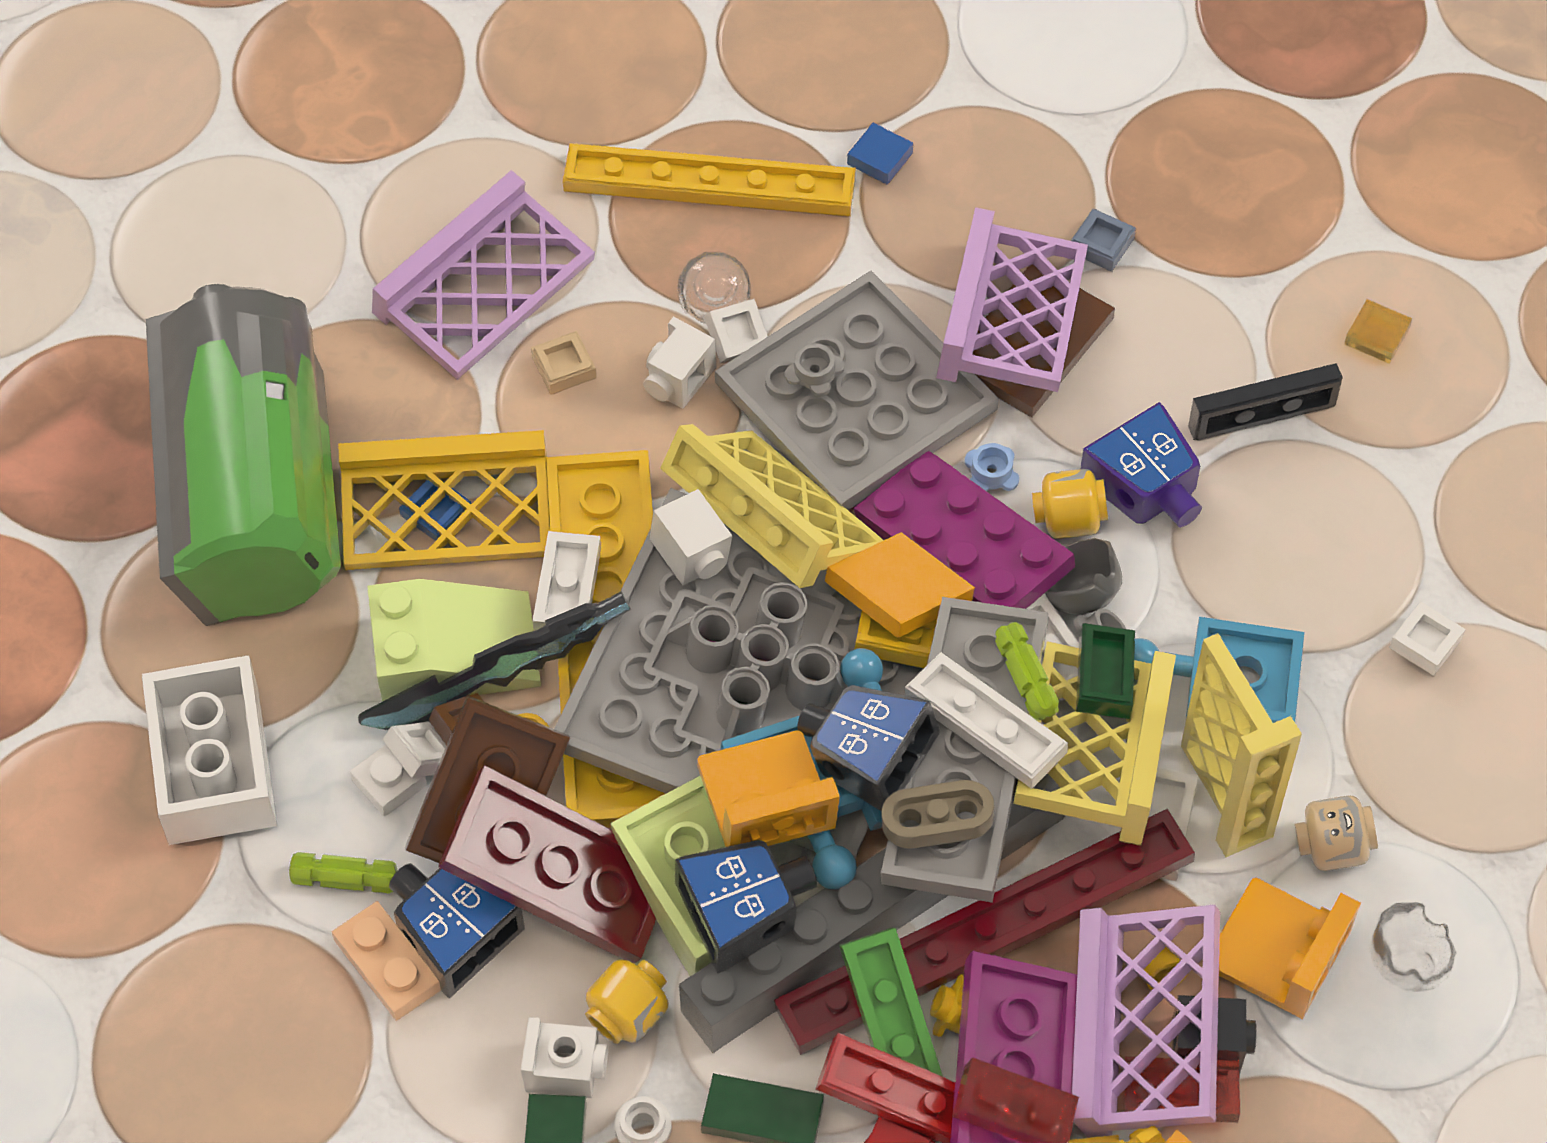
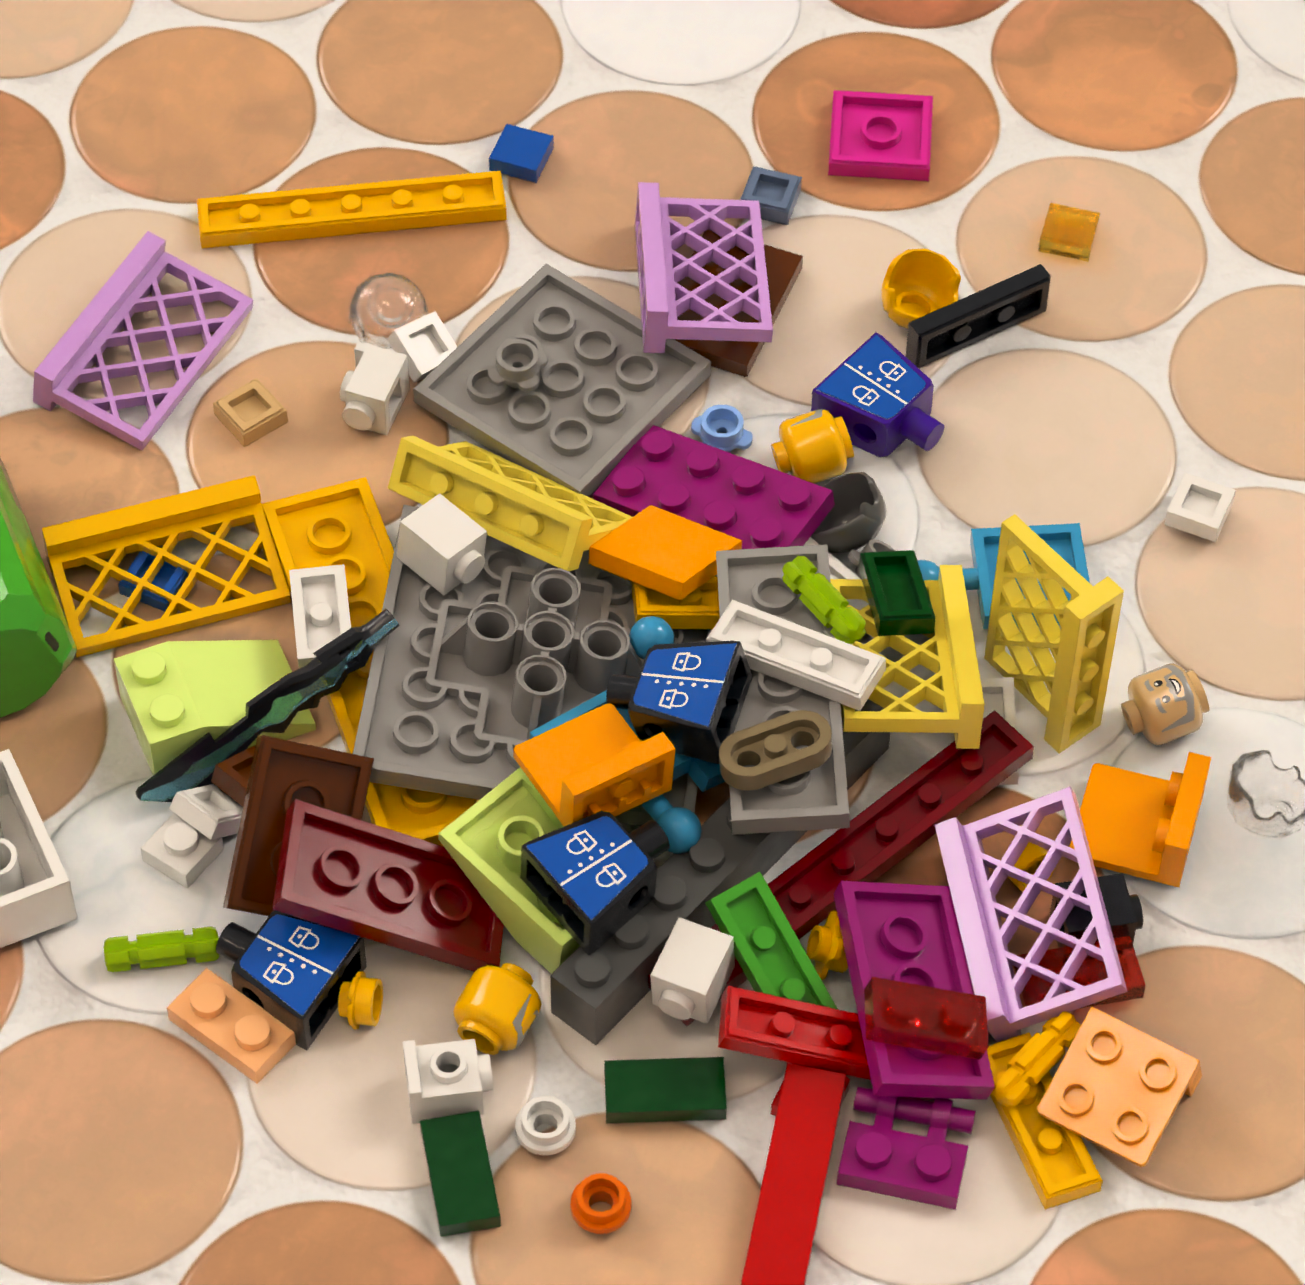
camera: 15 degrees left, 5 degrees down
(508, 964) = (361, 1000): none -> yellow plate
(811, 1009) = (692, 971): none -> white brick
(1215, 361) = (918, 285): none -> yellow hair
(1223, 199) = (880, 135): none -> dark pink tile

